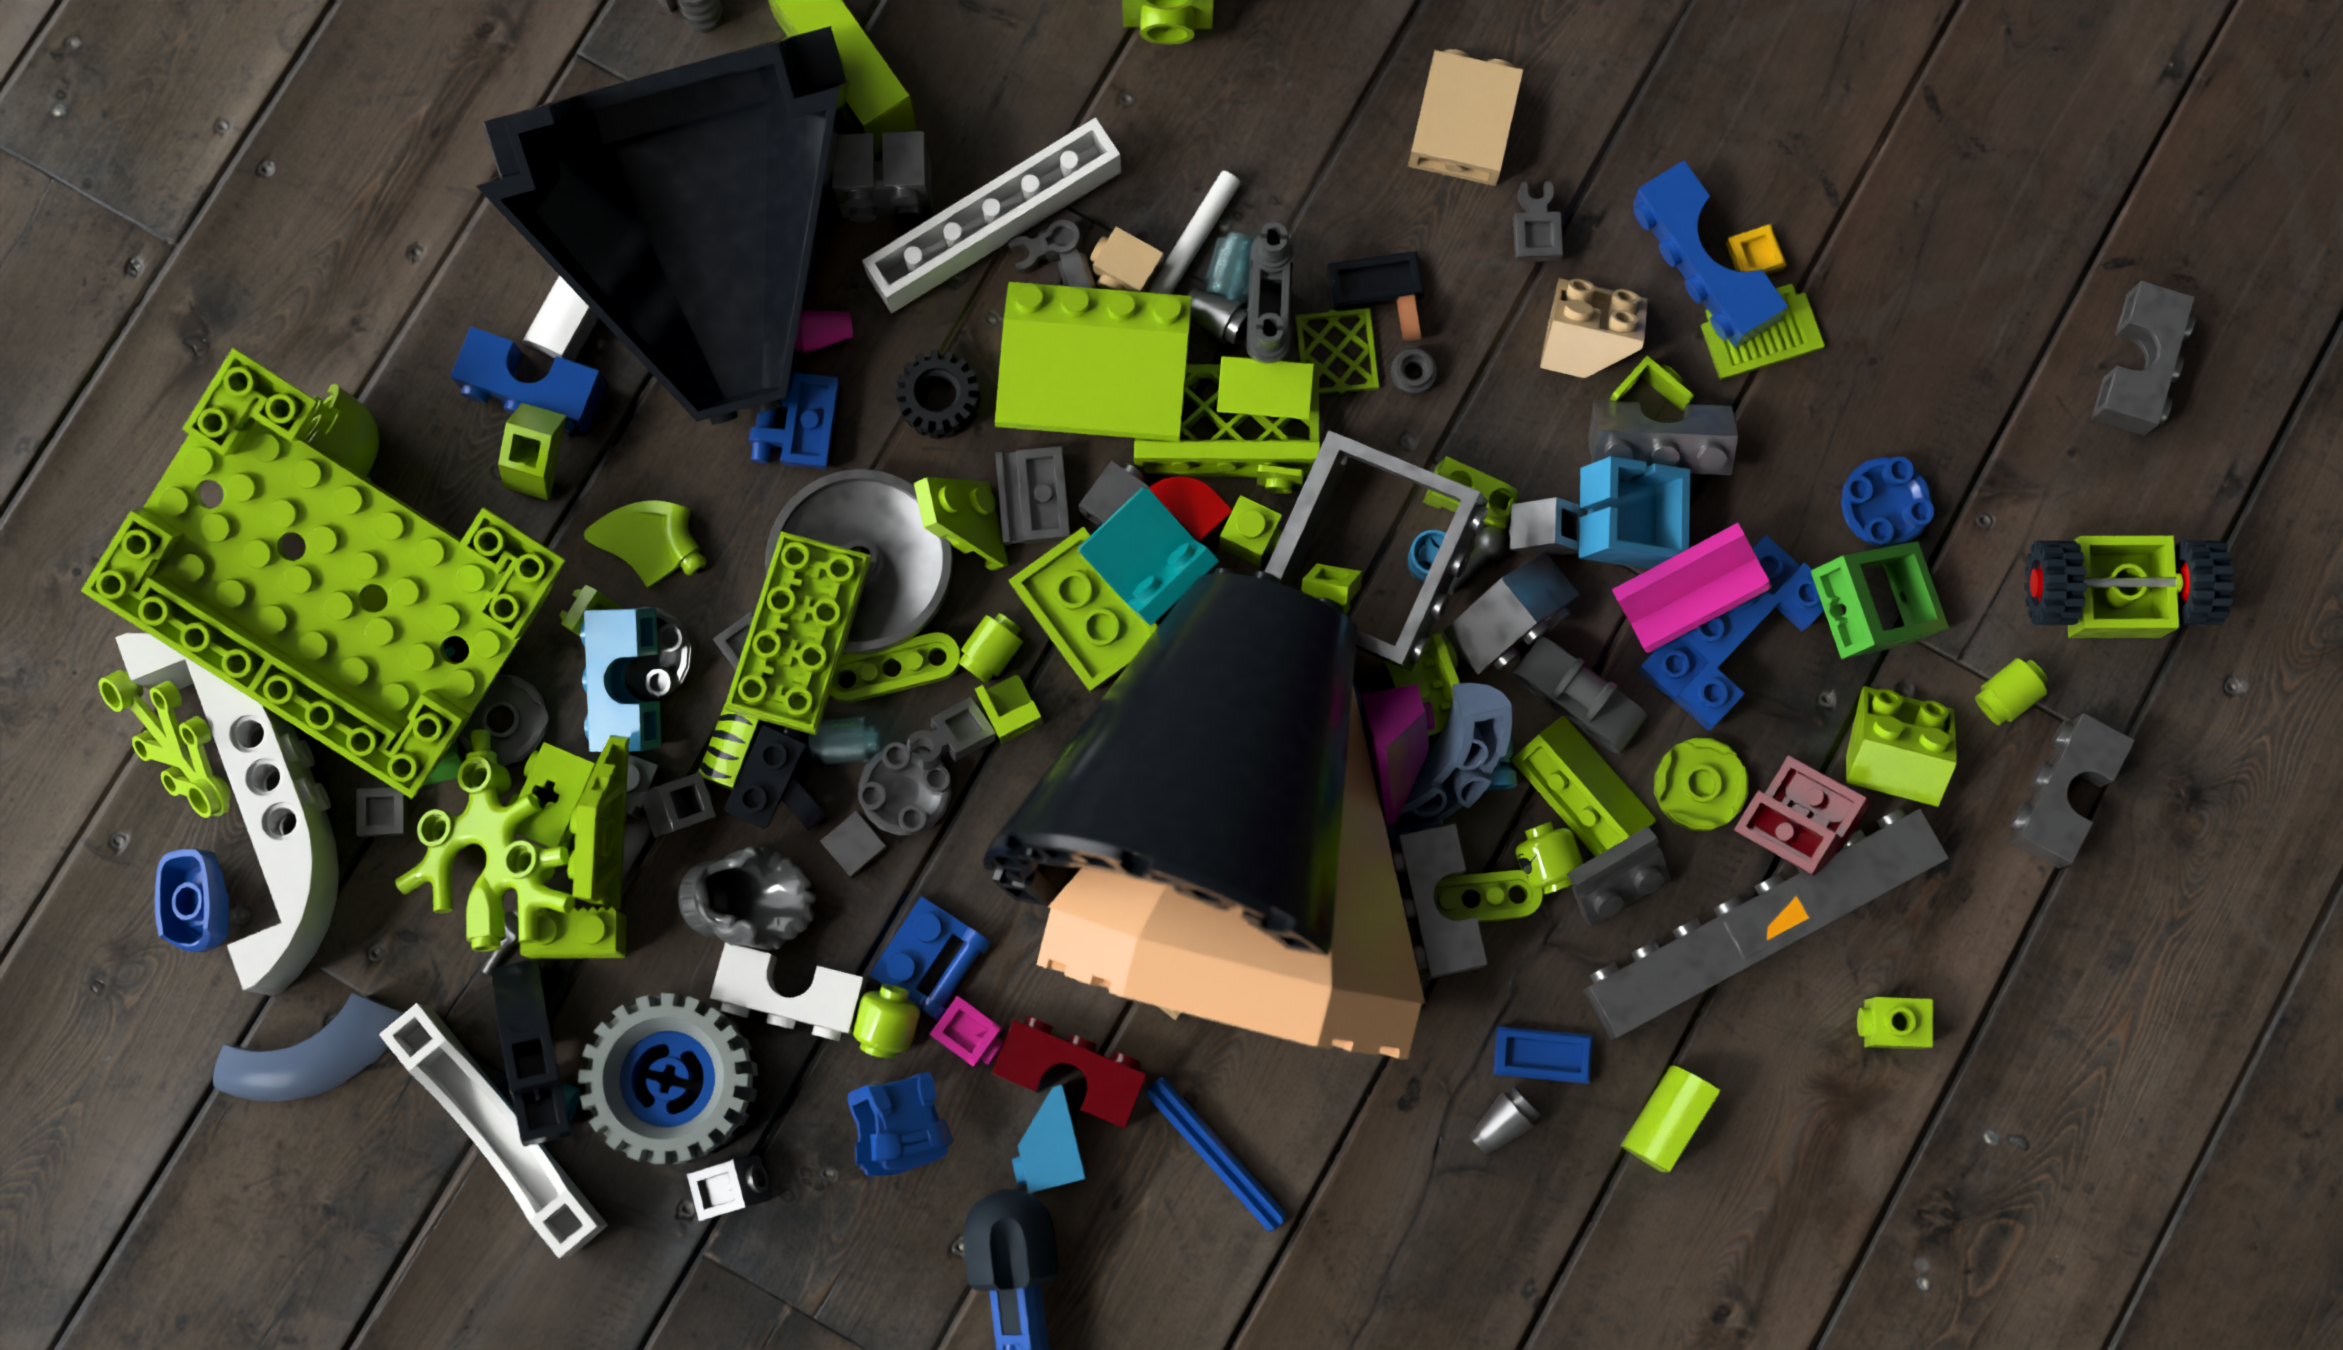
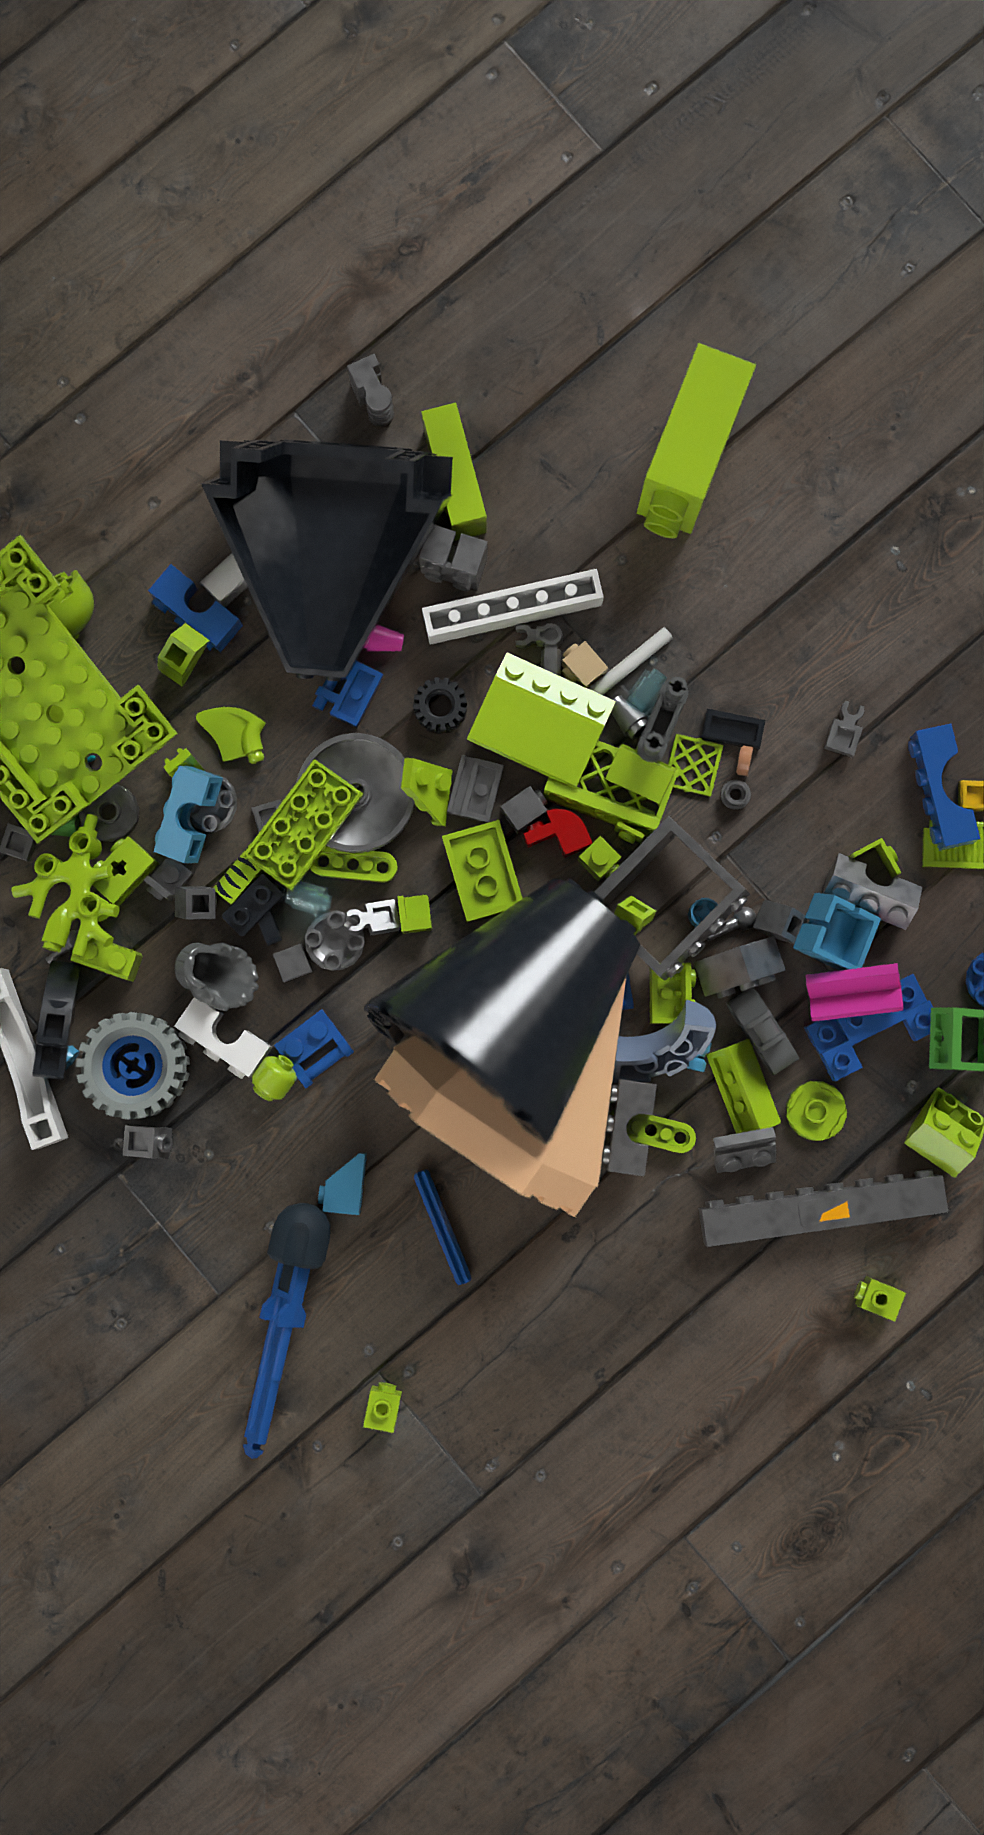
camera: 20 degrees right, 5 degrees up
(600, 829) = (143, 901): lime wing -> none
(898, 1126) = (259, 1143): blue piece -> none
(968, 1033) = (321, 1102): dark pink bracket -> none
(990, 647) = (416, 873): lime brick -> none
(1032, 1052) = (394, 1162): dark red arch -> none
(1146, 555) = (530, 853): teal bracket -> none
(1396, 743) = (639, 1022): magenta slope -> none
(1465, 116) = (826, 646): tan panel -> none
(1498, 493) = (756, 888): lime leg -> none
(1504, 1121) = (621, 1270): flat silver cone -> none
(1542, 1055) = (659, 1239): blue tile -> none
(1548, 857) = (707, 1122): lime head -> none
(1592, 328) = (855, 807): tan slope -> none
(1670, 1118) = (721, 1305): lime brick -> none
(1803, 816) = (869, 1154): slope -> none

